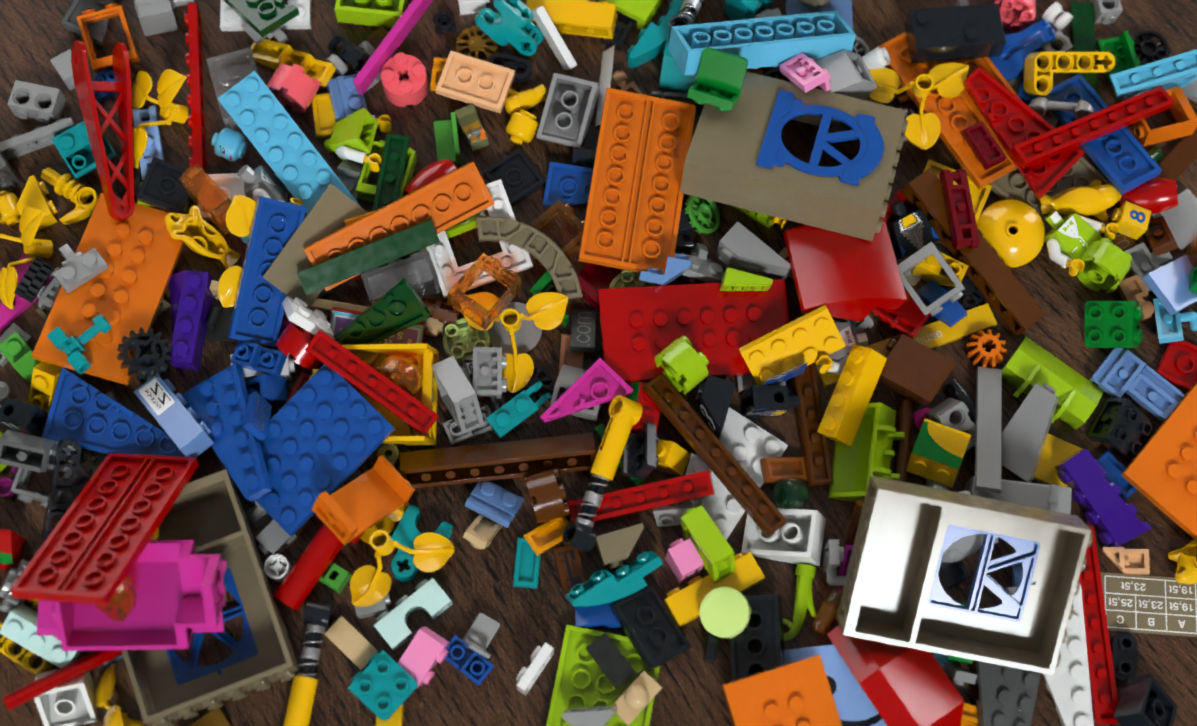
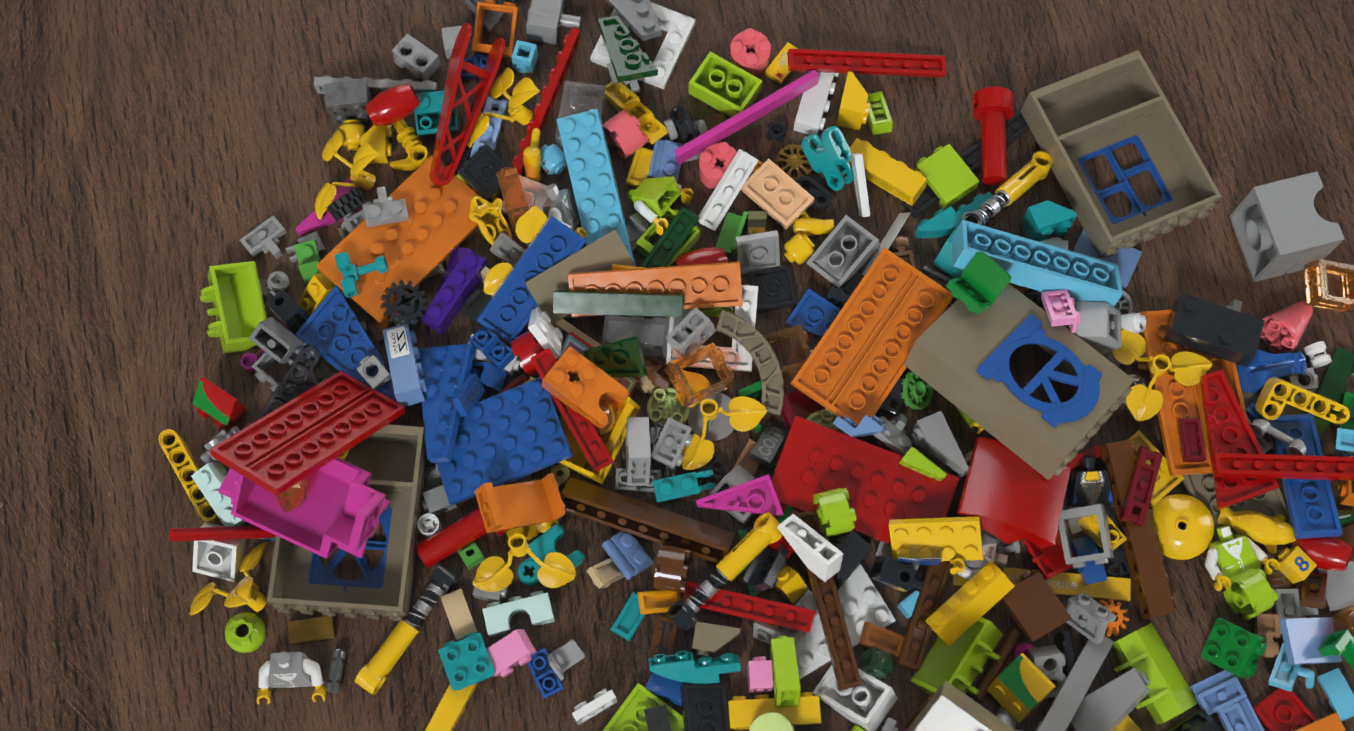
camera: 30 degrees right, 0 degrees up
(35, 157) = (393, 105): none -> red piece
(127, 395) = (377, 329): none -> reddish brown tile
(152, 53) = (524, 57): none -> medium azure brick
(155, 443) = (383, 374): none -> light grey brick
(209, 150) = (532, 158): none -> yellow piece
(226, 253) = (507, 249): none -> light grey plate
(379, 354) = (586, 393): none -> orange brick
(424, 98) = (727, 189): none -> white plate
(456, 253) = (691, 332): none -> light grey brick
(484, 145) = (758, 251): none -> light grey plate
(679, 410) = (811, 547): none -> white slope
(793, 424) = (908, 604): none -> medium azure slope
(970, 355) = (1089, 617): none -> light grey bracket

